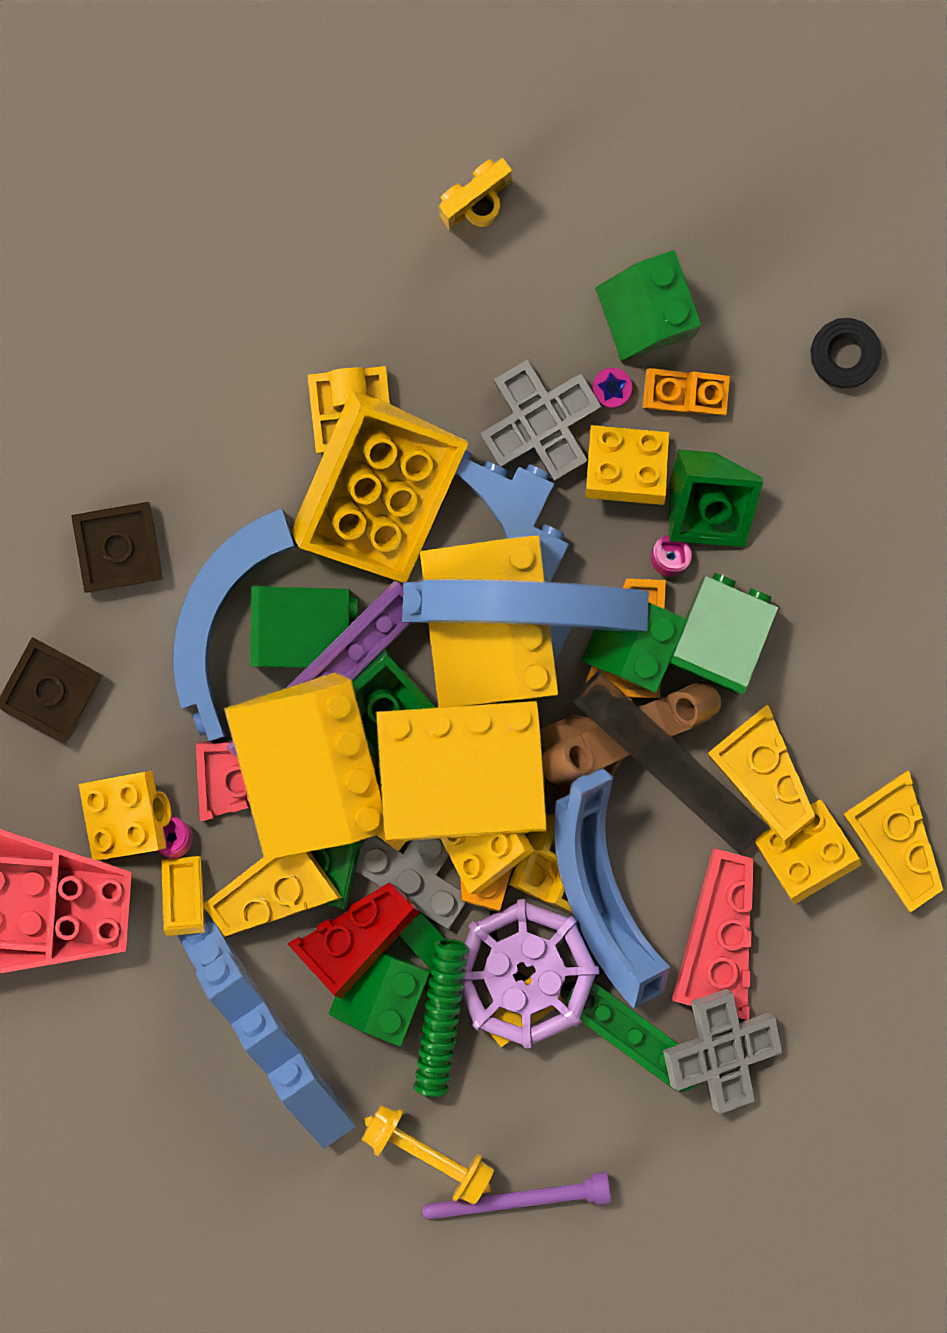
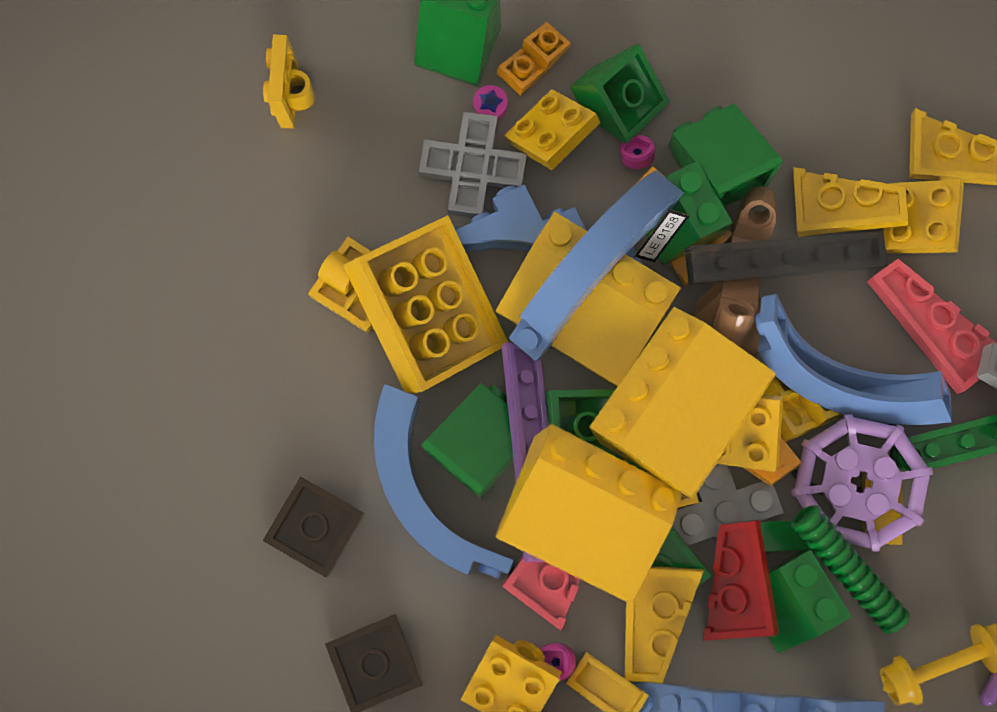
camera: 40 degrees left, 10 degrees down
(598, 641) = (661, 235): none -> sticker

